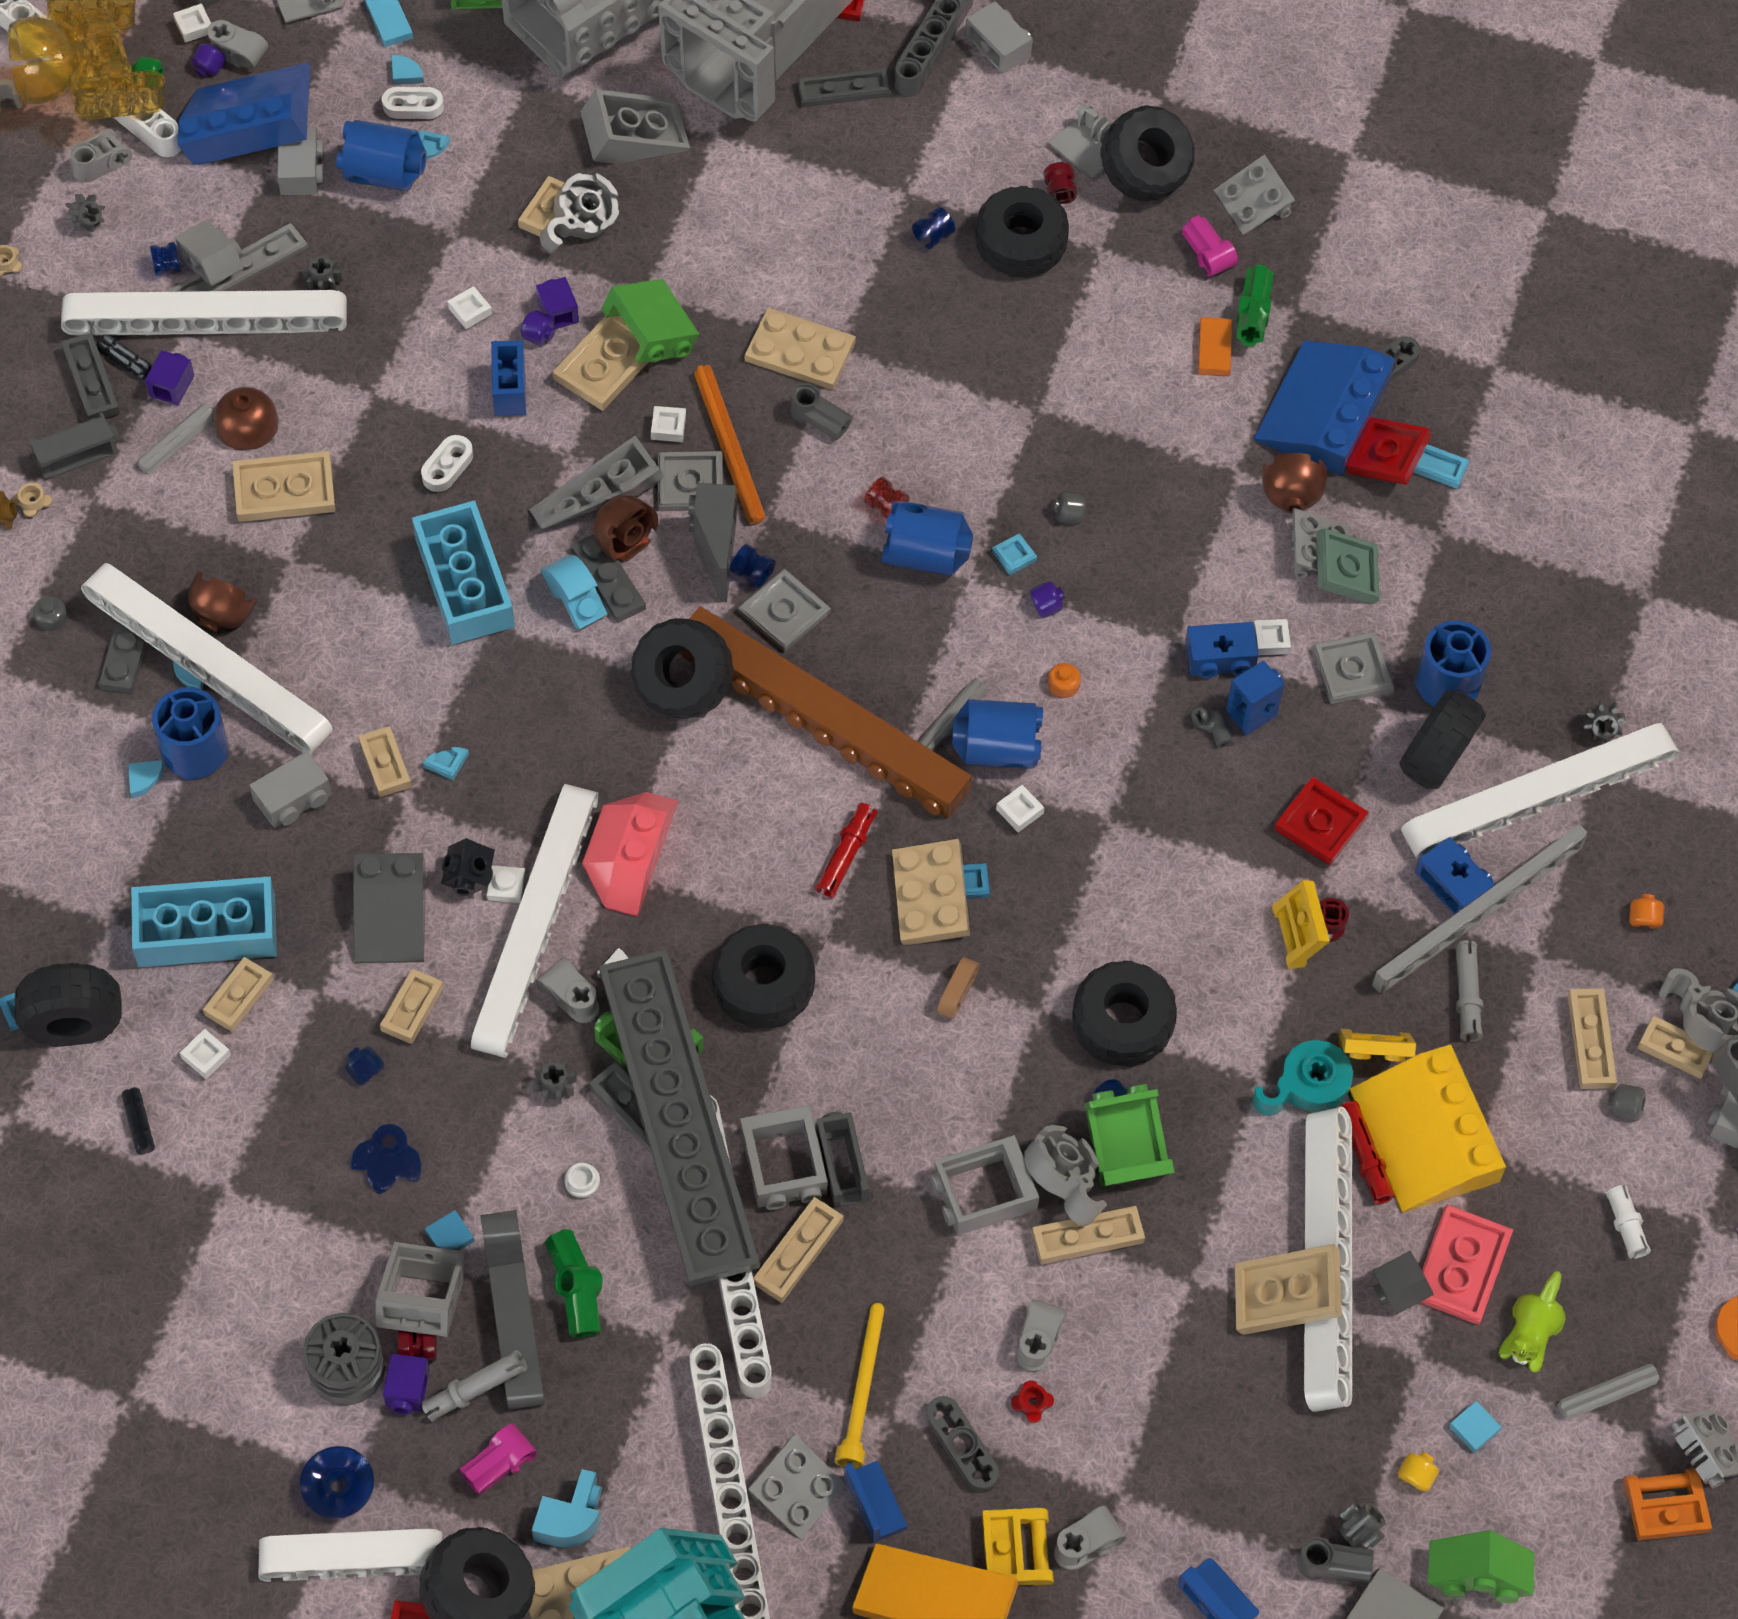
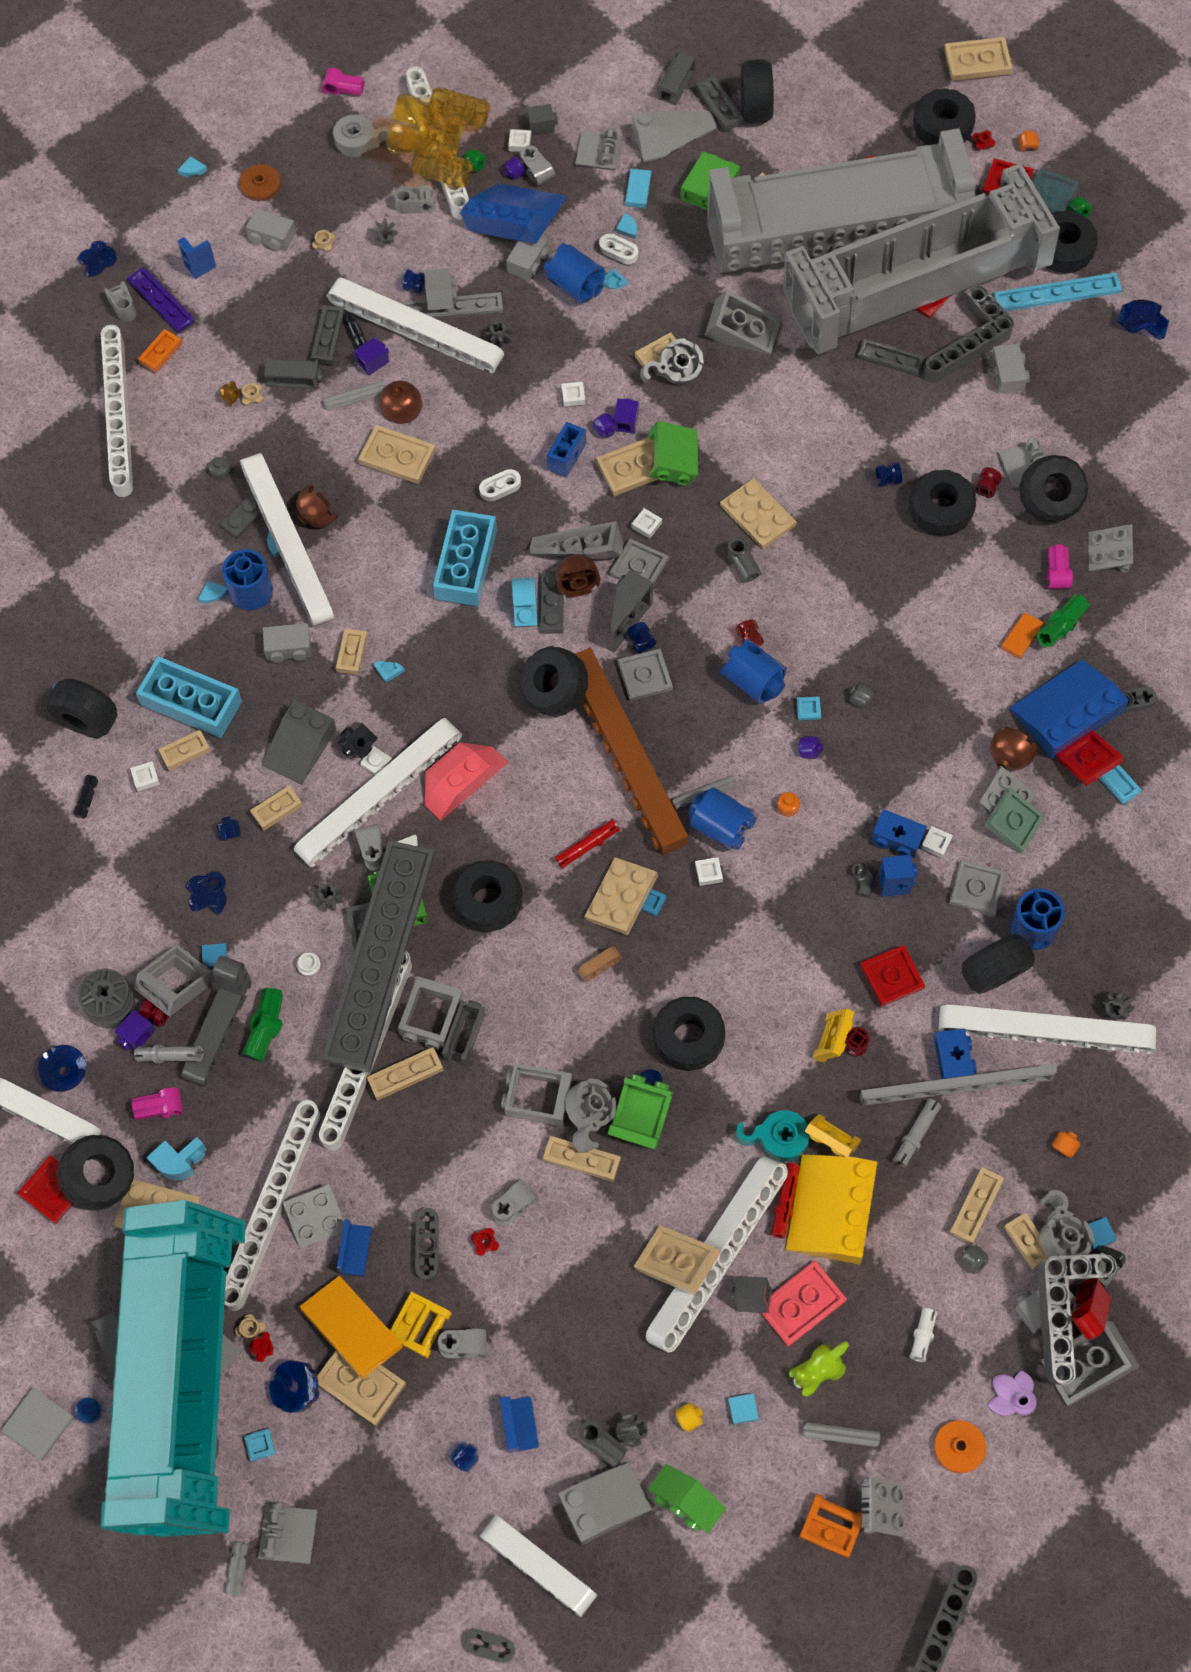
camera: 35 degrees right, 5 degrees up
(729, 445) = (676, 554): orange axle -> none
(851, 1447) = (361, 1211): yellow piece -> none

